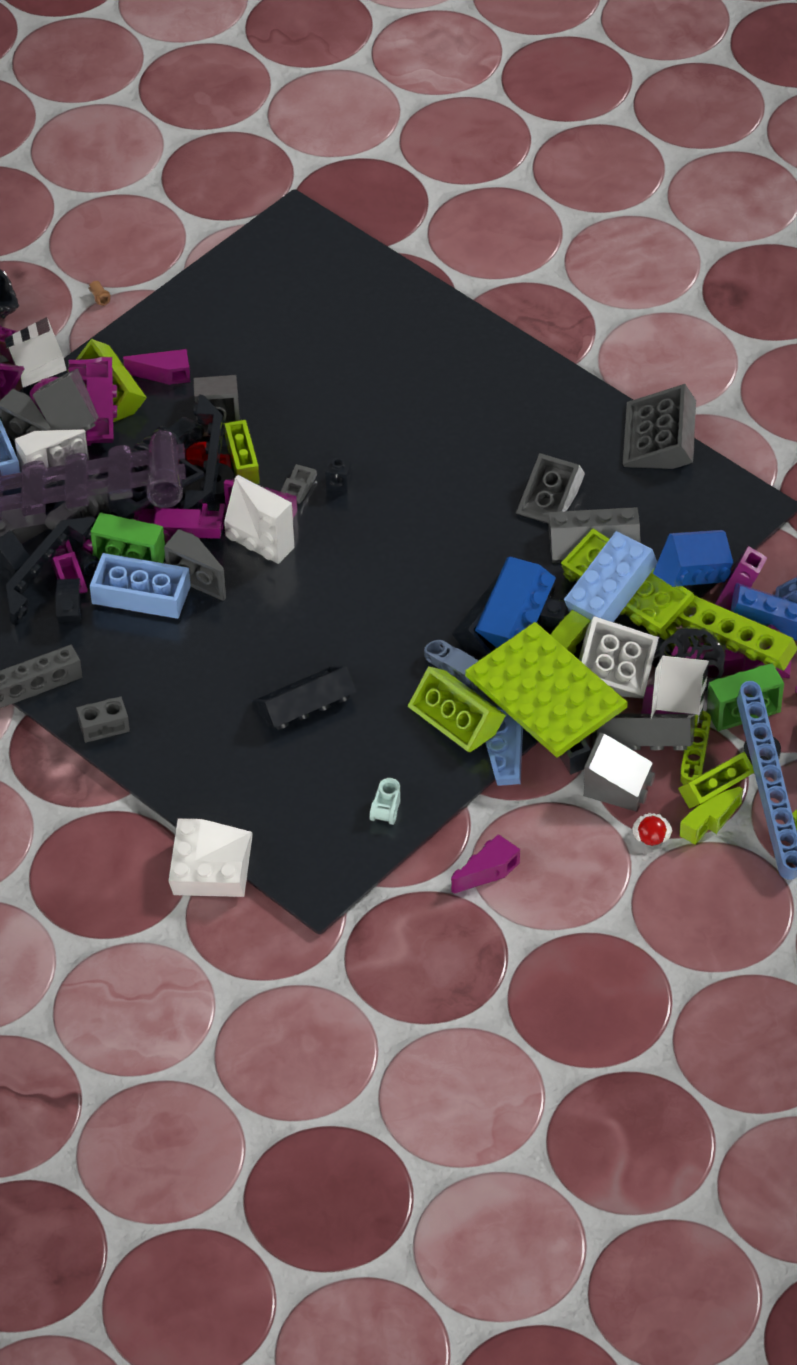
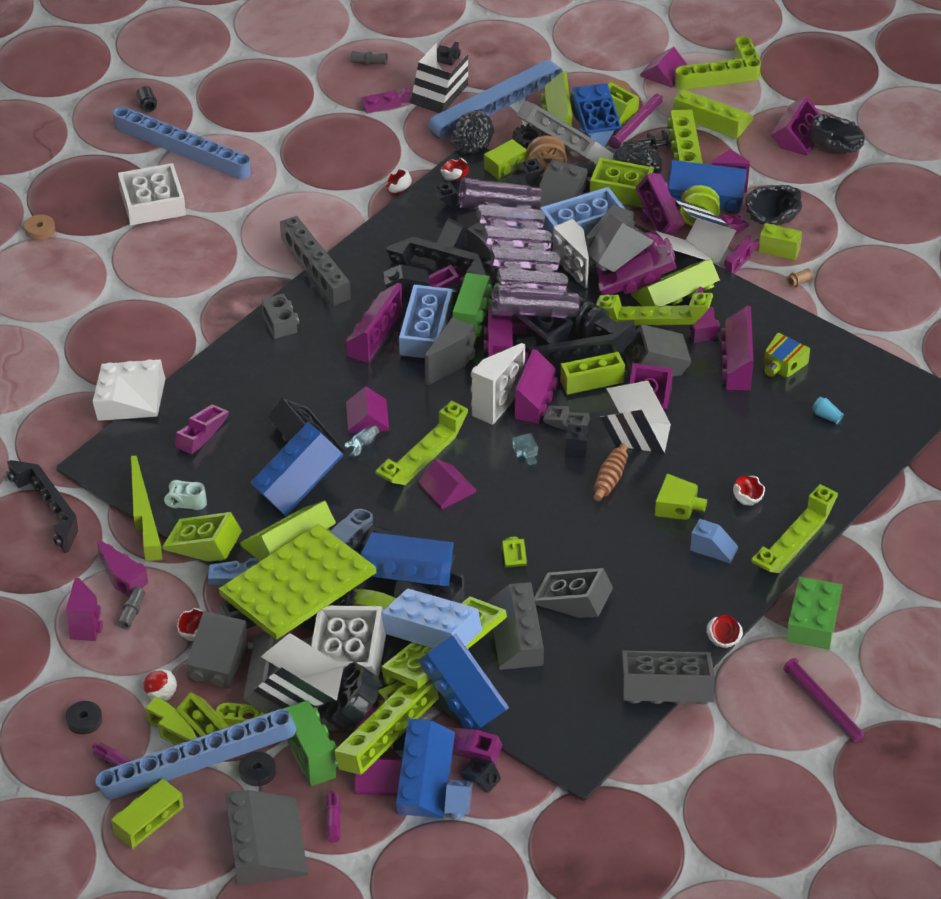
camera: 85 degrees right, 5 degrees down
(44, 298) = (780, 241): none -> lime brick
(65, 336) = (740, 255): none -> magenta plate
(136, 628) = (375, 324): none -> magenta slope
(161, 389) = (657, 314): none -> lime slope
(223, 336) = (737, 350): none -> magenta slope
(229, 310) = (785, 356): none -> lime torso
(265, 413) = (659, 379): none -> magenta slope
(270, 650) = (367, 410): none -> magenta slope
(281, 791) = (200, 428): none -> magenta slope
(310, 288) = (826, 410): none -> medium azure cone
(311, 649) = (365, 437): none -> clear light blue plate
(317, 427) = (640, 418): none -> sticker
(336, 520) = (525, 446): none -> clear light blue plate
(366, 622) = (428, 448): none -> lime slope
(371, 694) = (296, 469): none -> slope
(383, 453) = (610, 472): none -> nougat piece
(388, 585) = (445, 484): none -> magenta slope
(407, 840) = (143, 515): none -> lime slope
(421, 353) = (748, 490): none -> red hair
(426, 405) = (678, 499): none -> lime torso
(429, 916) = (25, 473): none -> black slope
(448, 304) = (799, 533): none -> lime slope
(452, 786) = (204, 536): none -> lime slope
(486, 387) = (712, 541): none -> medium blue slope
(492, 532) = (514, 552): none -> lime bracket
(543, 856) = (131, 608): none -> dark grey pin
(557, 888) = (83, 613): none -> magenta slope
(574, 798) = (189, 623): none -> red hair
(580, 326) = (814, 613): none -> bright green brick
(608, 385) = (724, 631): none -> red hair
(682, 334) = (823, 700): none -> magenta axle
(689, 904) = (83, 725): none -> black piece
(749, 867) = (109, 754): none -> magenta piece
(771, 576) = (482, 772): none -> black bracket

